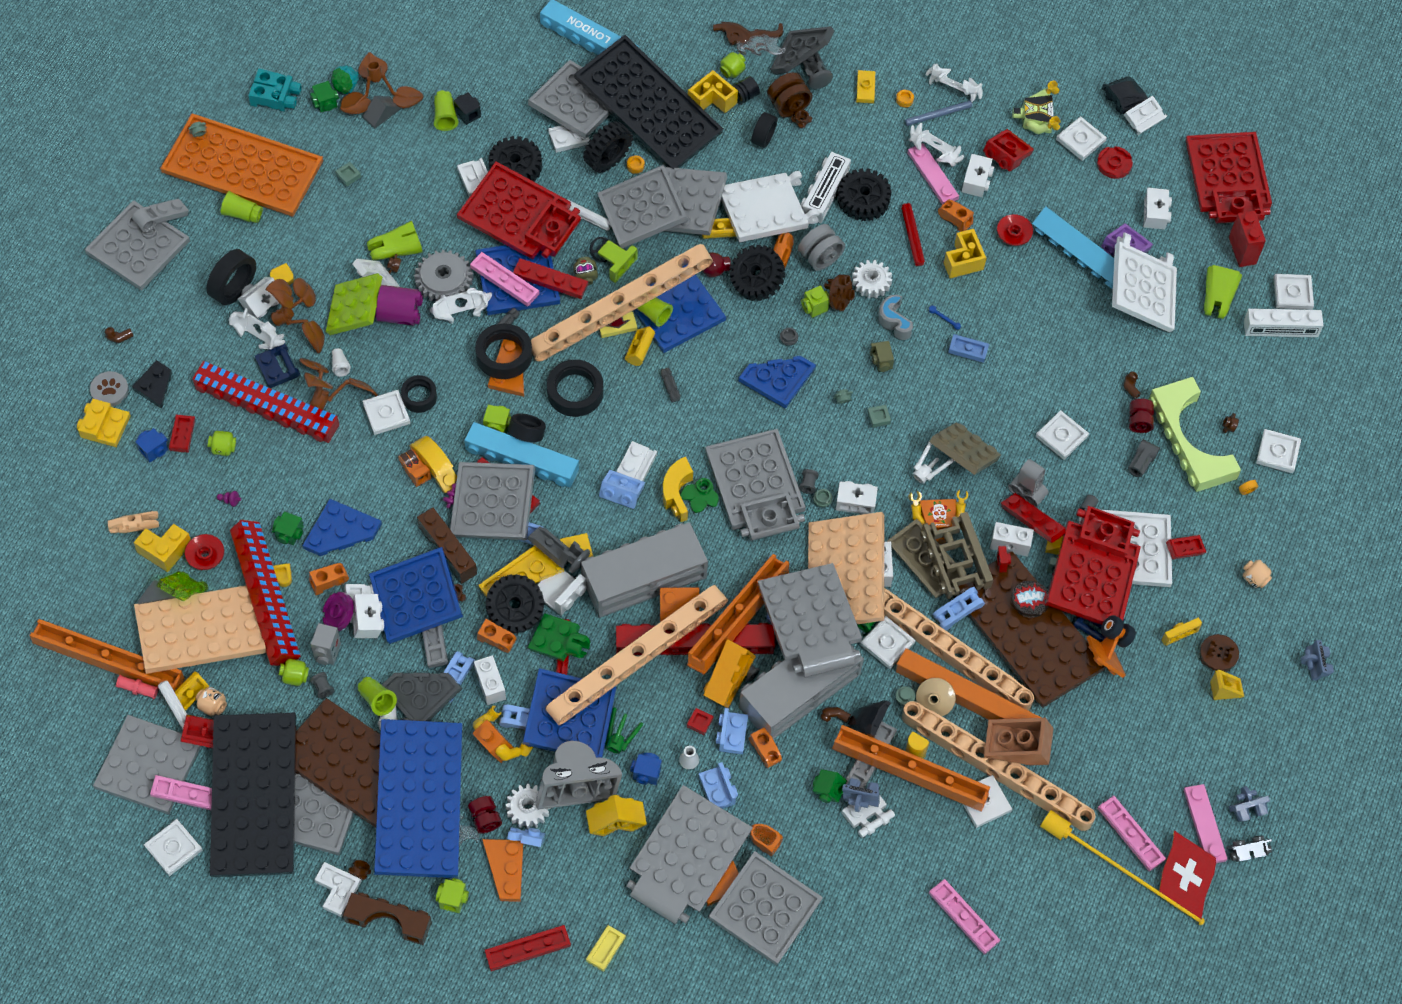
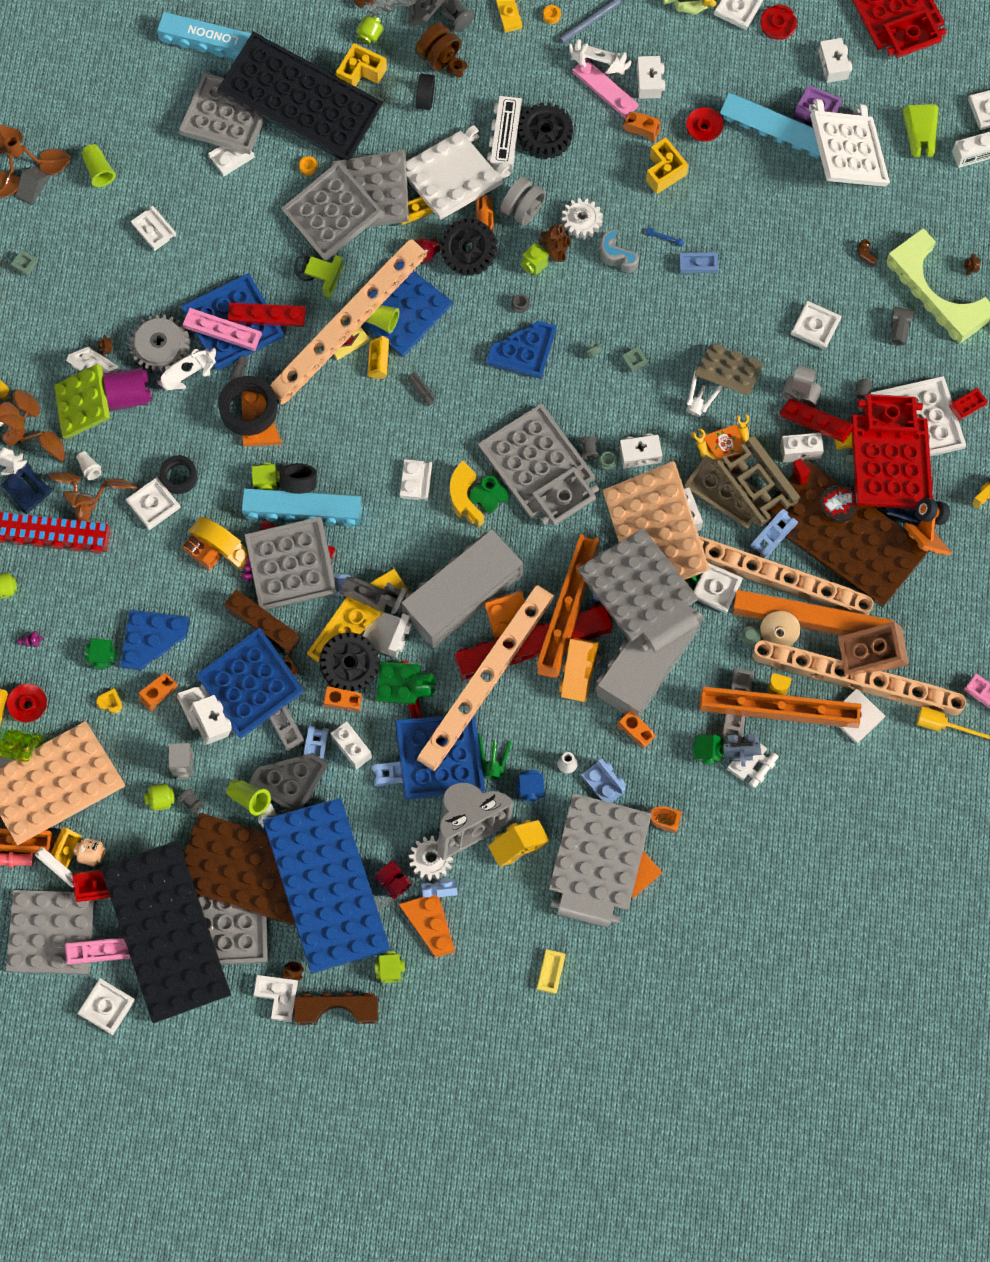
camera: 15 degrees left, 10 degrees up
(264, 592) = (101, 726): red brick -> none
(338, 610) = (180, 723): magenta tile -> none
(399, 241) = (100, 321): lime piece -> none
(467, 108) = (119, 155): black brick -> none
(494, 741) = (375, 803): torso -> none
(520, 151) = (191, 212): black wheel -> none
(520, 213) = (213, 255): red plate -> none
(527, 948) = (478, 995): red plate -> none
(575, 367) = (330, 399): black tyre -> none
(586, 269) = (298, 294): olive head -> none
(591, 216) = (278, 234): white axle -> none
(608, 147) = (277, 158): black wheel -> none
(621, 489) = (410, 511): light blue bracket -> none
(700, 721) = (565, 722): red plate -> none
(733, 732) = (599, 723): light blue bracket -> none
(746, 89) = (393, 52): black piece -> none
(765, 908) = (687, 886): light grey plate -> none
(835, 712) = (688, 673): reddish brown arm -> none
(868, 718) = (724, 671): black slope -> none
(882, 355) = (618, 296): olive brick -> none
(913, 234) = (606, 158): red axle -> none
(964, 916) = (873, 834): bright pink plate -> none
(1007, 150) = (670, 41): red plate -> none
(1141, 415) = (886, 284): dark red wheel -> none
(1247, 238) = (932, 67): red brick -> none

